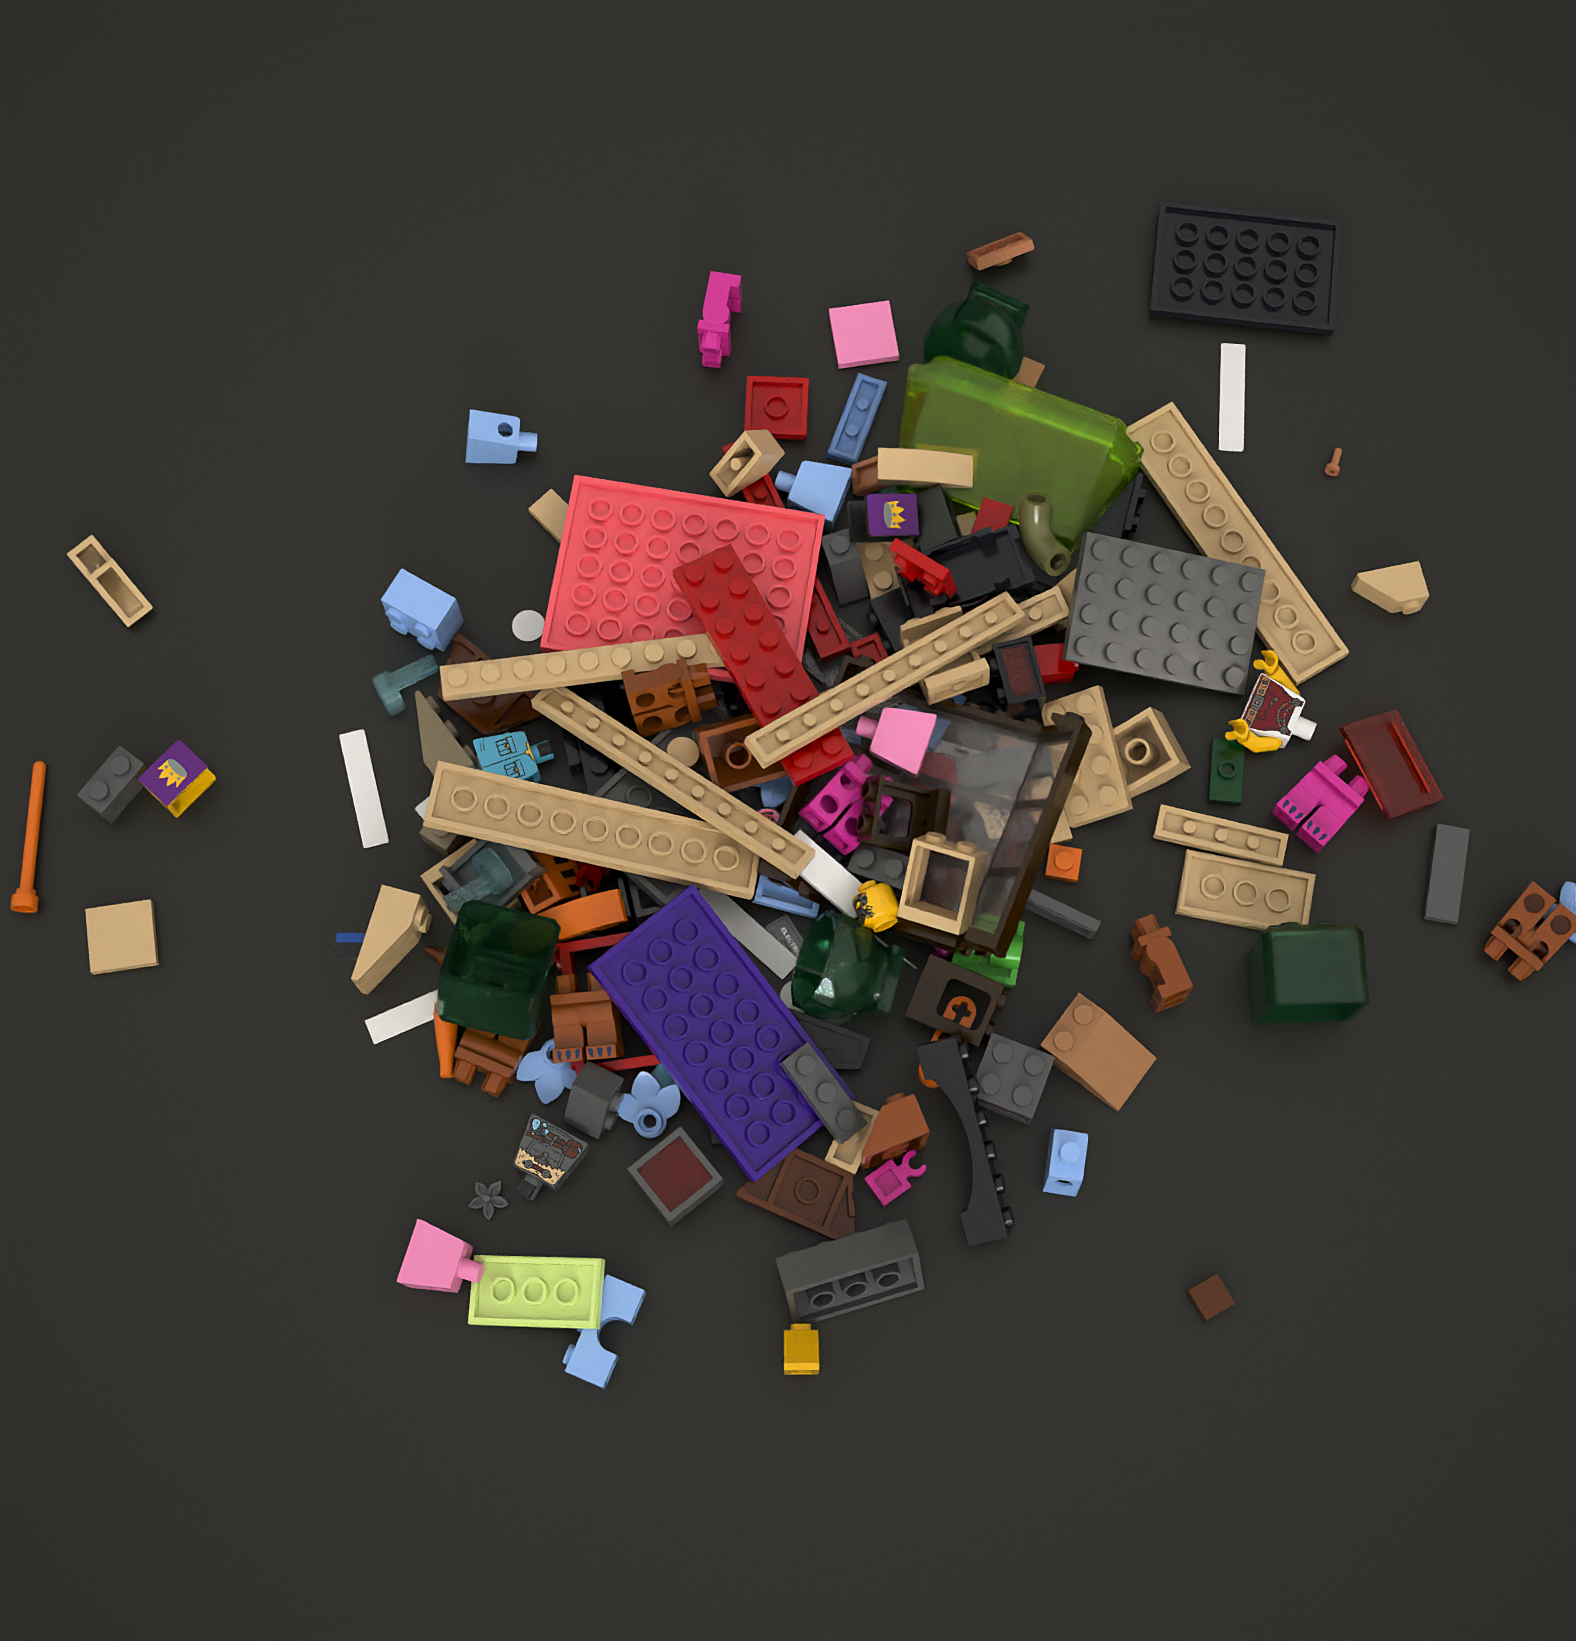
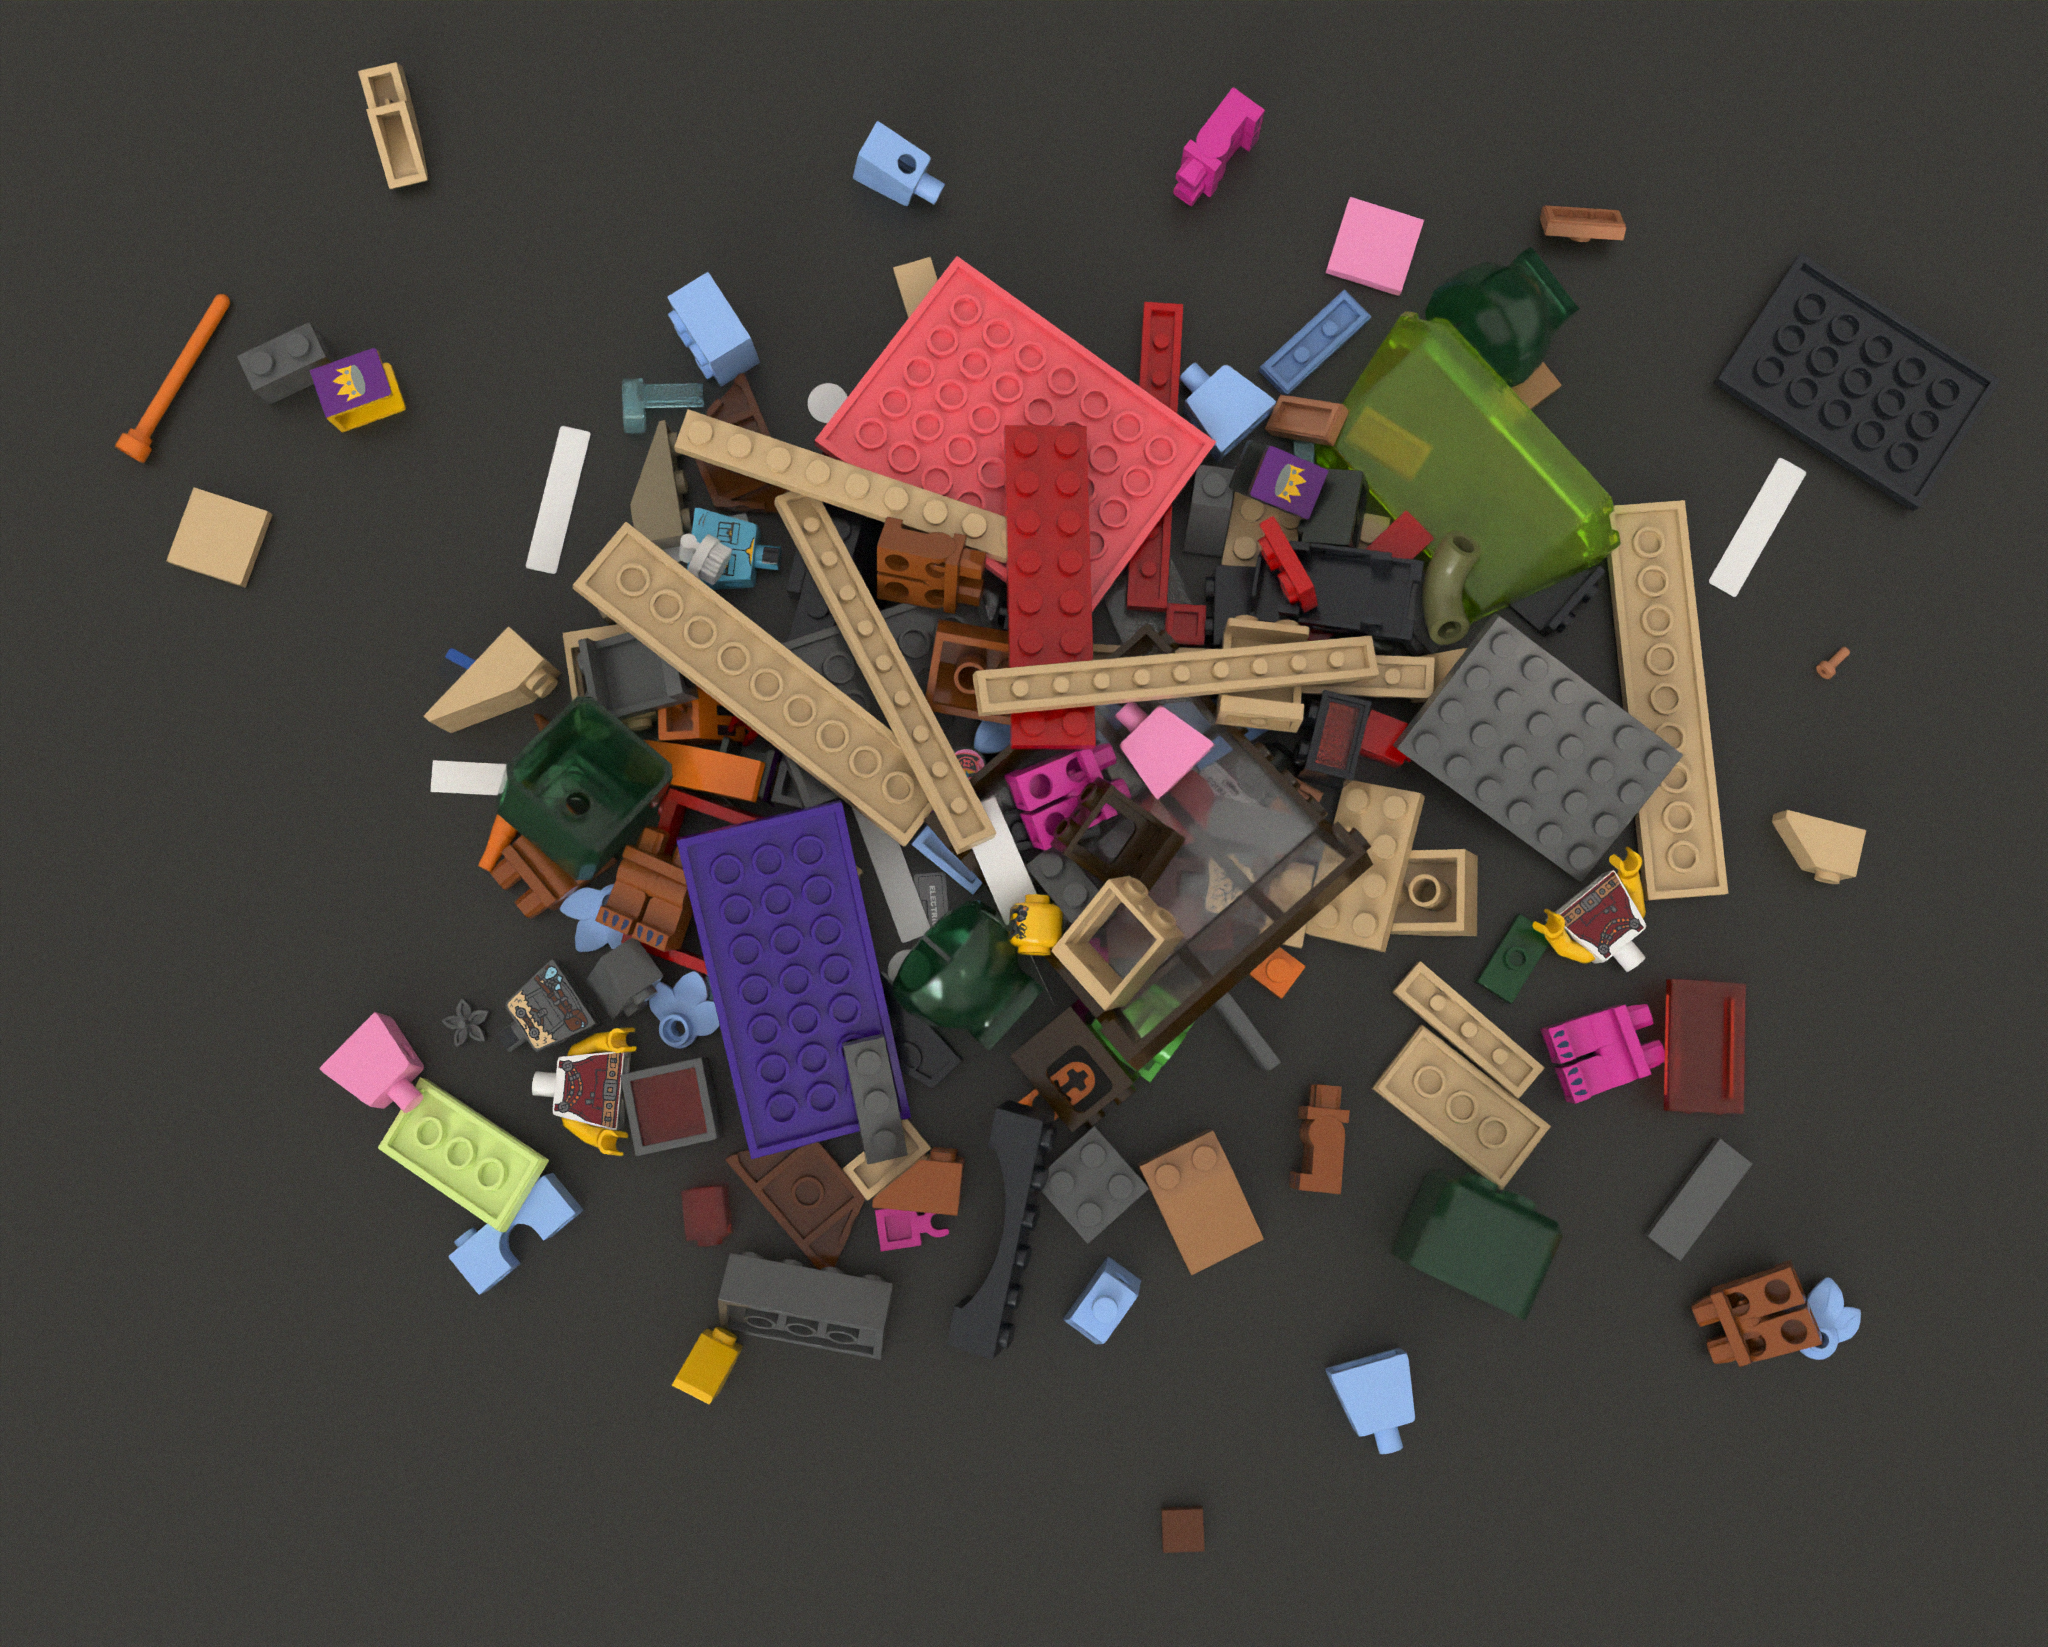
camera: 25 degrees right, 10 degrees up
(492, 878) = (631, 681): clear light blue piece -> none
(502, 764) = (705, 558): none -> white piece
(608, 1194) = (590, 1088): none -> torso
(684, 750) = (914, 640): tan tile -> none
(741, 1244) = (707, 1214): none -> clear red brick
(746, 461) = (1161, 334): tan slope -> none
(777, 405) = (1230, 285): red plate -> none
(924, 468) = (1355, 443): tan slope -> none
(1297, 1127) = (1376, 1396): none -> light blue torso

